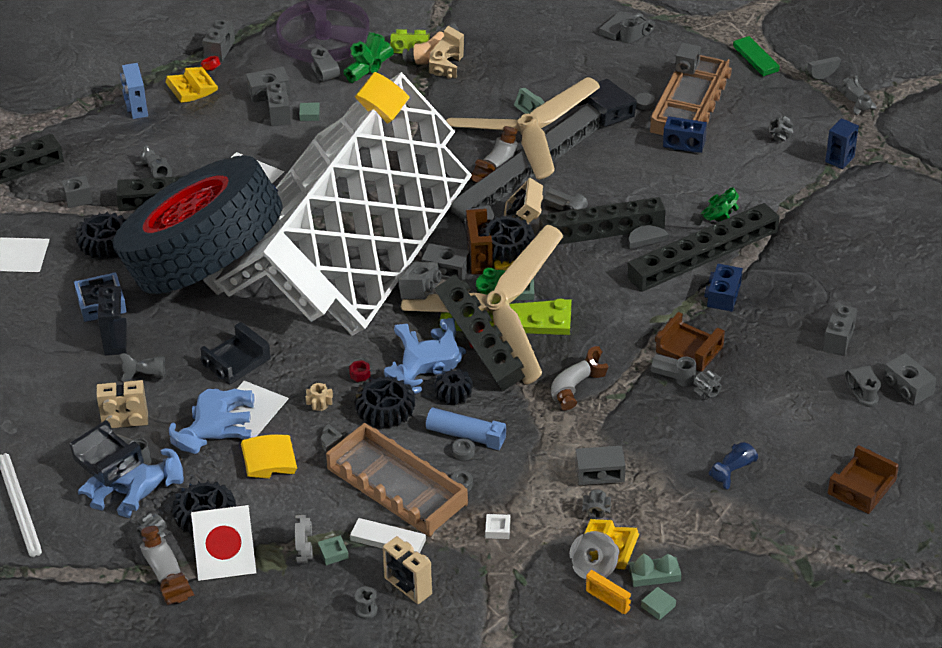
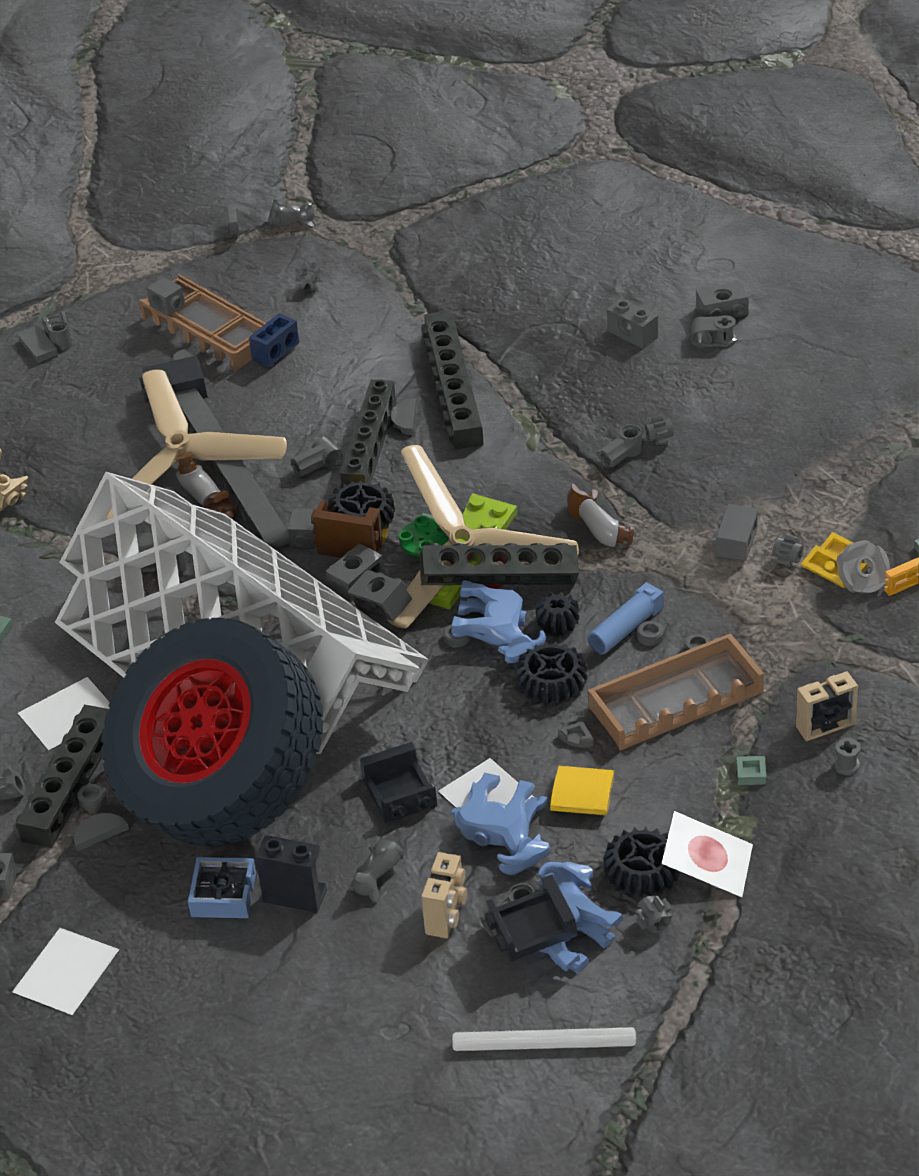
camera: 65 degrees left, 0 degrees up
(97, 234) = (94, 864): black gear -> none
(164, 564) = (710, 916): piece -> none
(302, 531) = (755, 784): light grey plate -> none
(319, 396) = (513, 725): tan gear -> none
(359, 371) = (486, 684): dark red tile -> none
(379, 534) = (753, 722): white tile -> none
(382, 96) = (140, 497): yellow slope -> none
(497, 526) = (776, 634): white tile -> none
(525, 201) = (312, 480): tan piece -> none
(527, 101) = (134, 440): sand green tile -> none
(654, 571) = (891, 535): sand green tile -> none
(683, 340) = (589, 429): reddish brown panel -> none
(721, 206) = (403, 346): green plate -> none
(724, 287) = (523, 381): dark blue brick -> none
(740, 456) = (775, 439): dark blue animal -> none
(756, 56) = (171, 262): green tile -> none
(841, 143) = (370, 239): dark blue brick -> none
(864, 480) = (836, 371): reddish brown panel -> none

